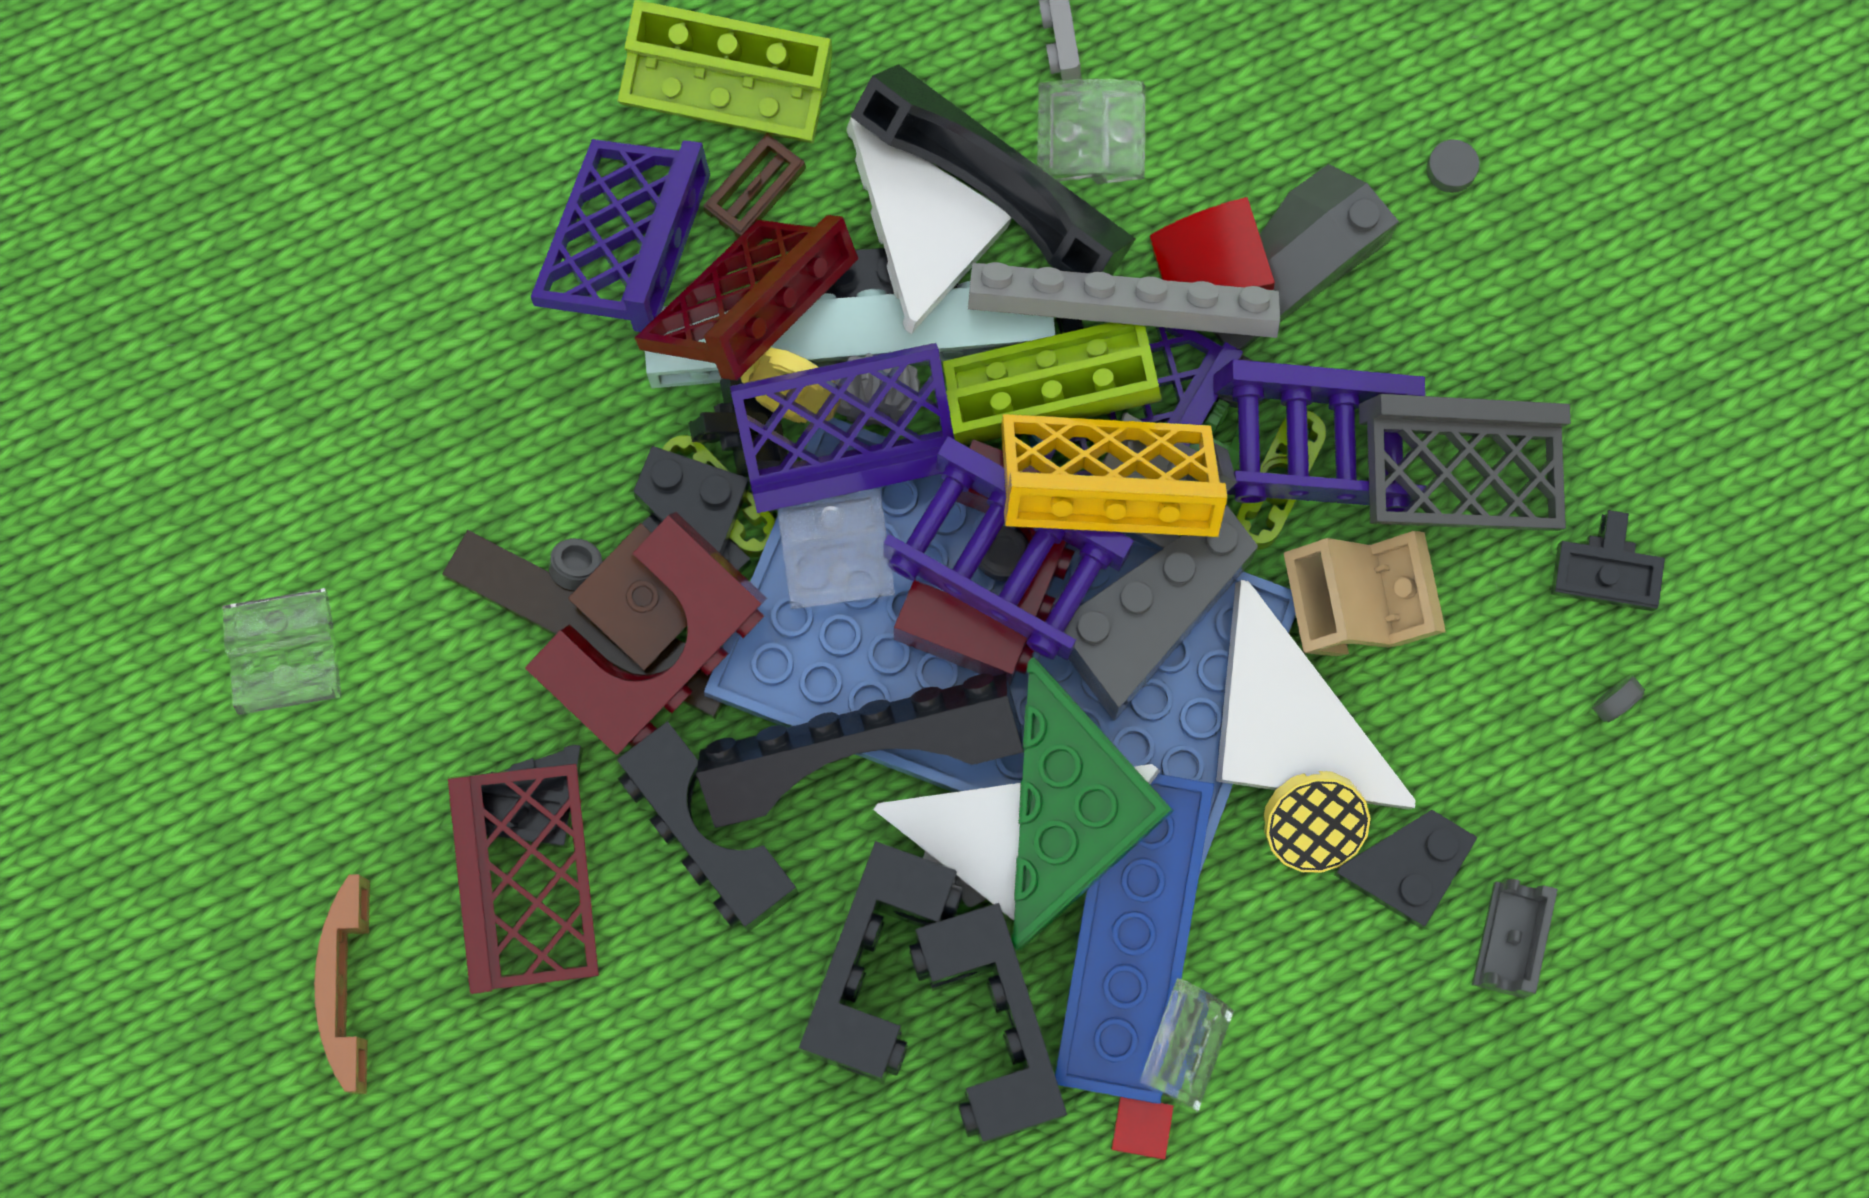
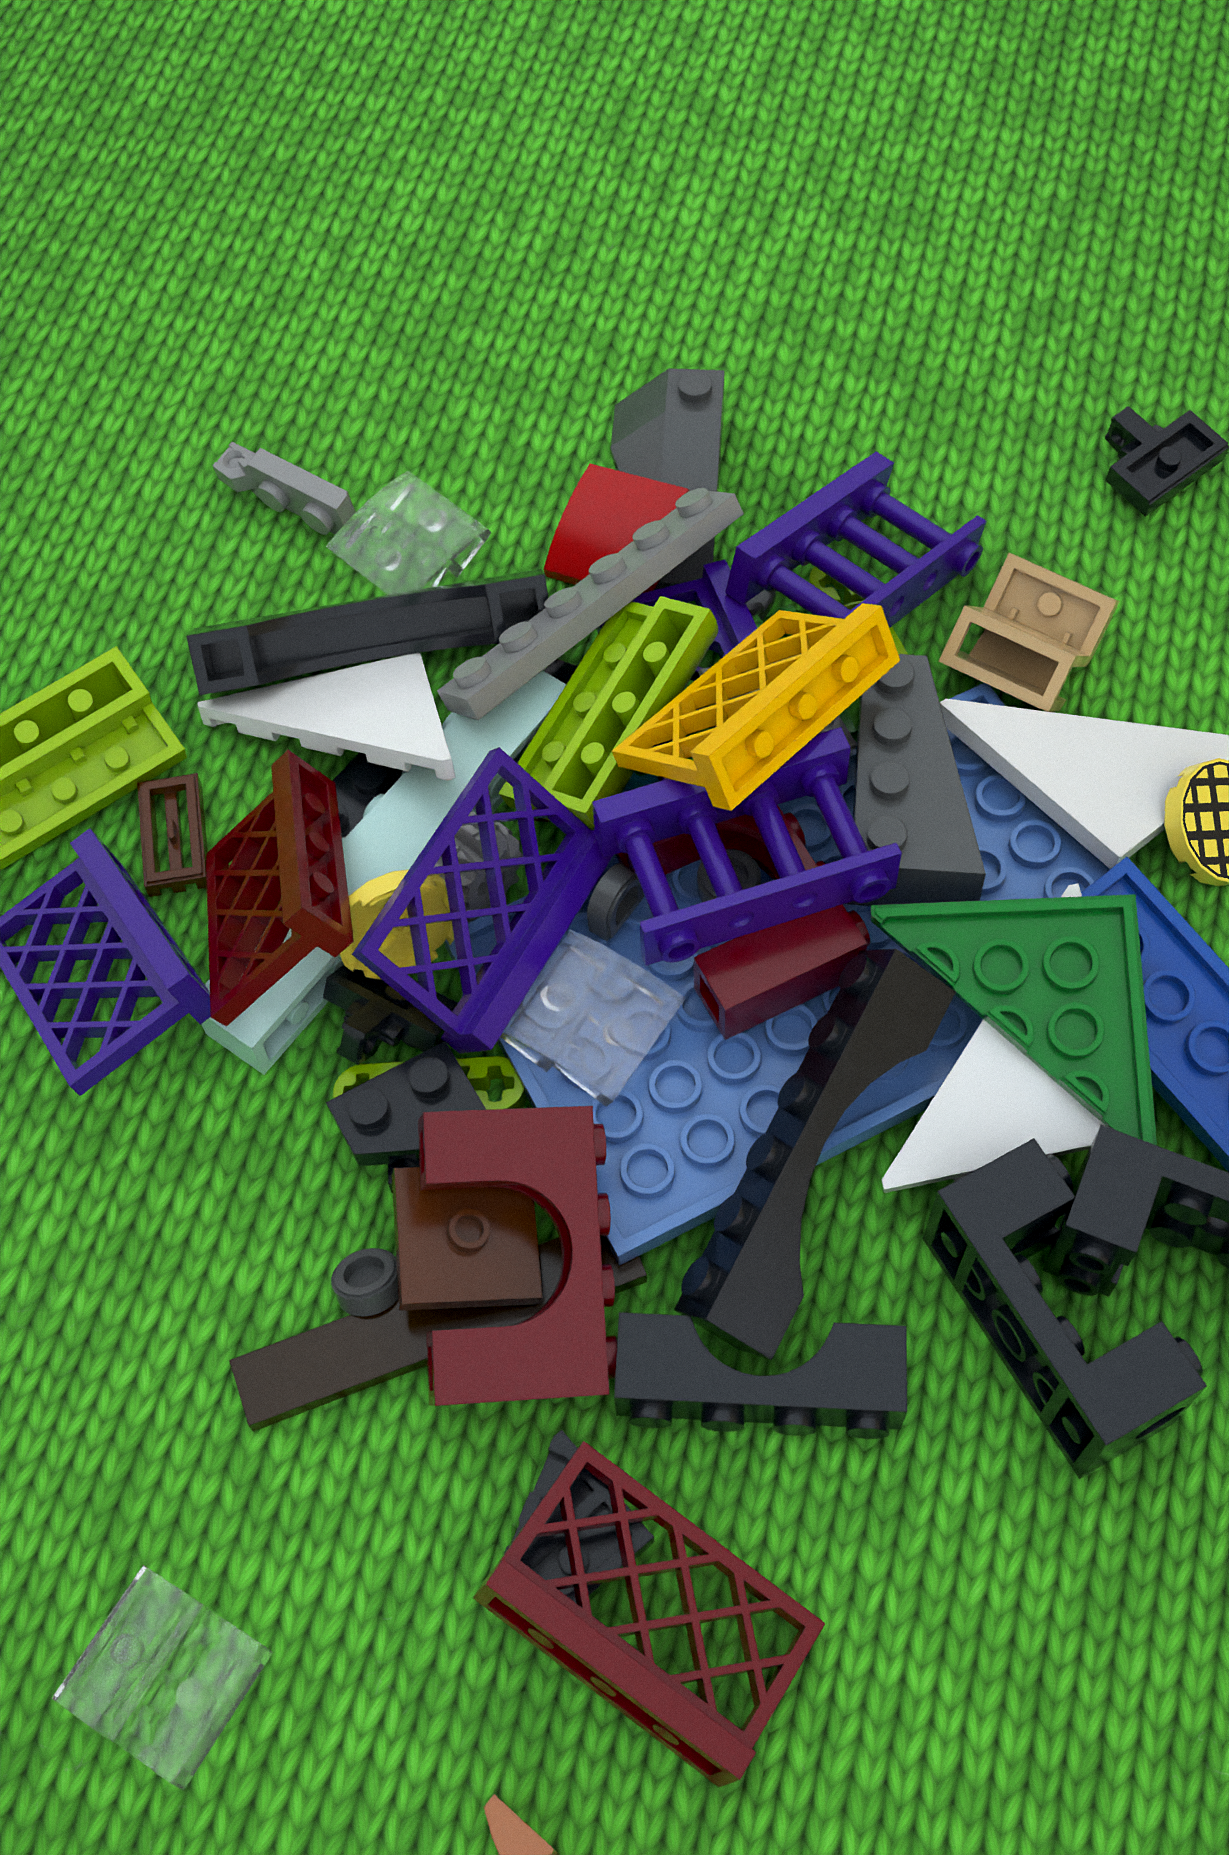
camera: 45 degrees left, 15 degrees down
(917, 495) = (613, 901): none -> dark grey tile
(1452, 166) = (705, 327): dark grey tile -> none
(1460, 418) = (948, 448): dark grey fence -> none

